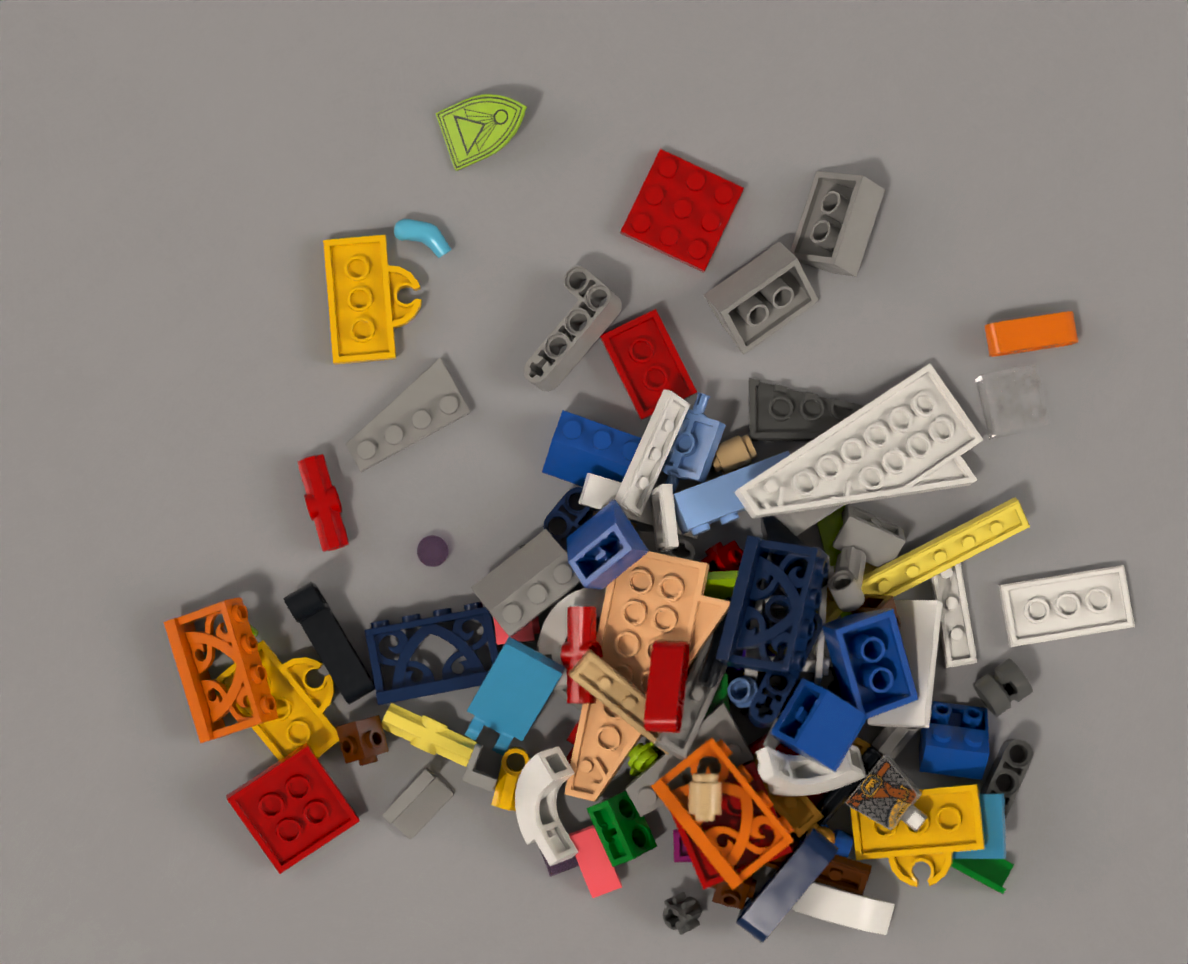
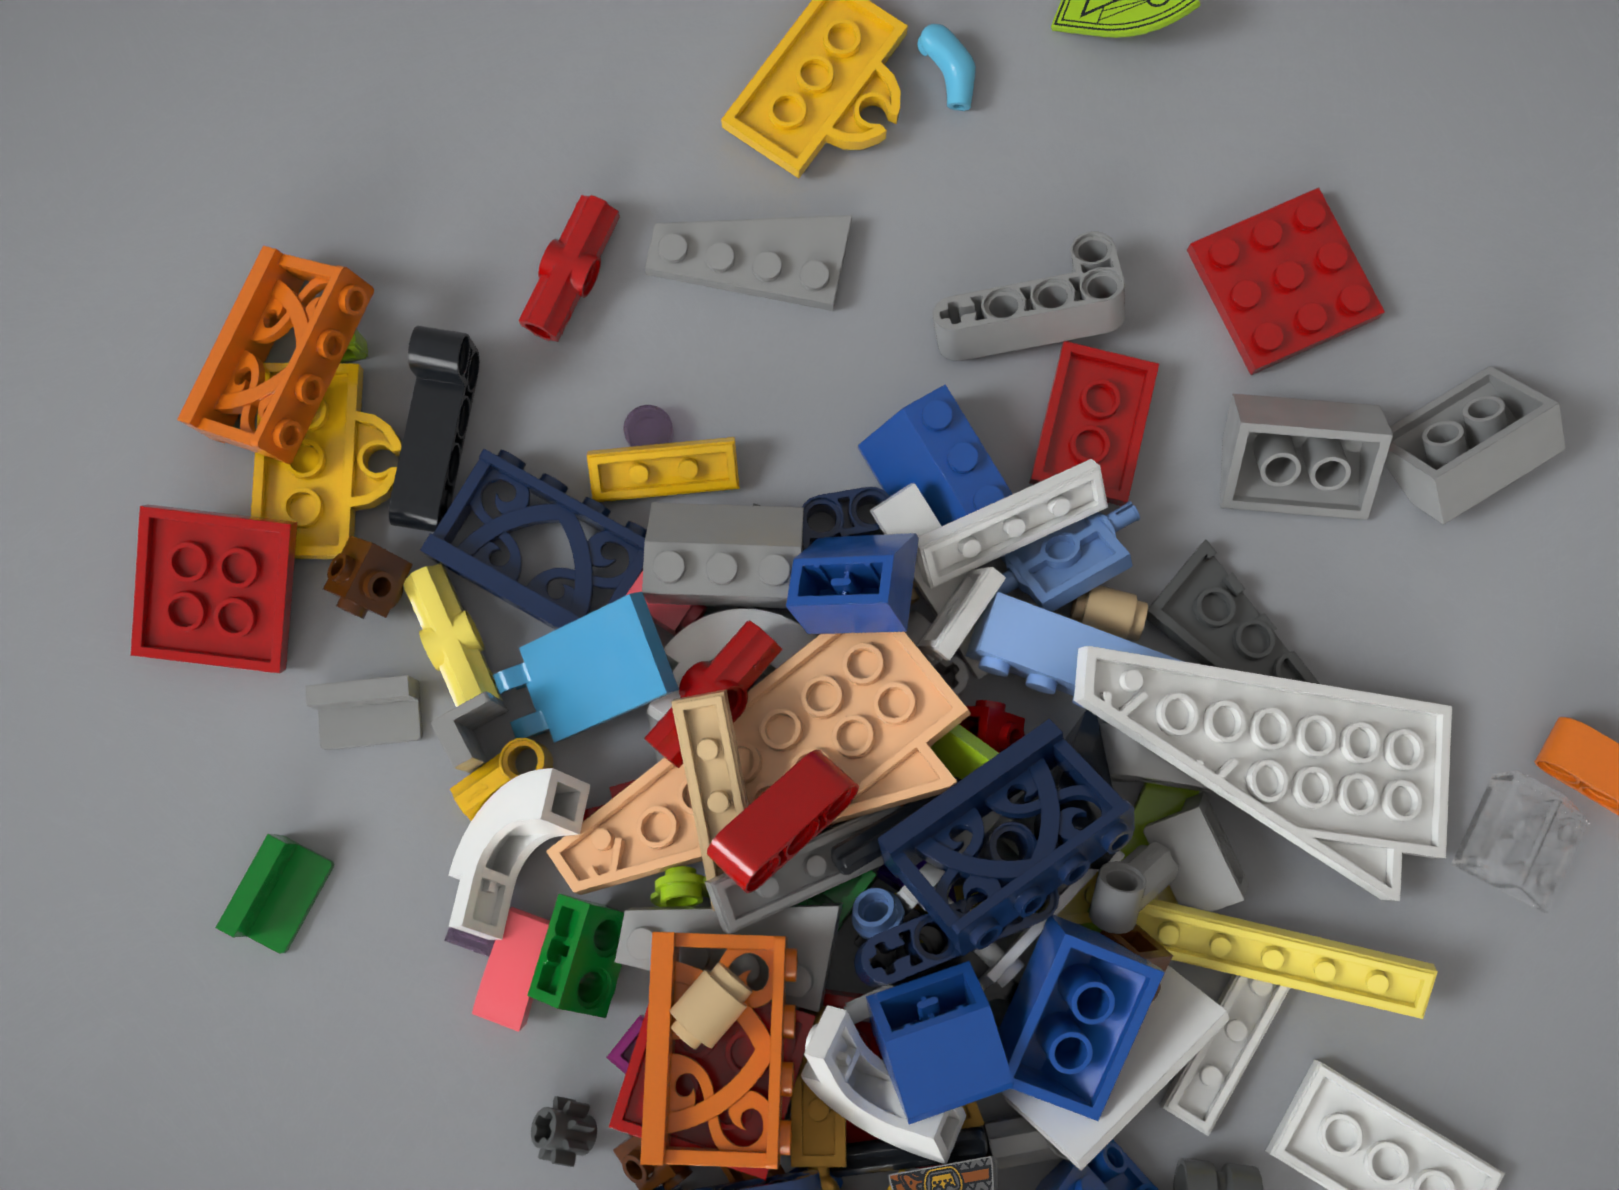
camera: 45 degrees right, 5 degrees down
(452, 923) = (276, 893): none -> green panel
(458, 564) = (663, 469): none -> yellow tile

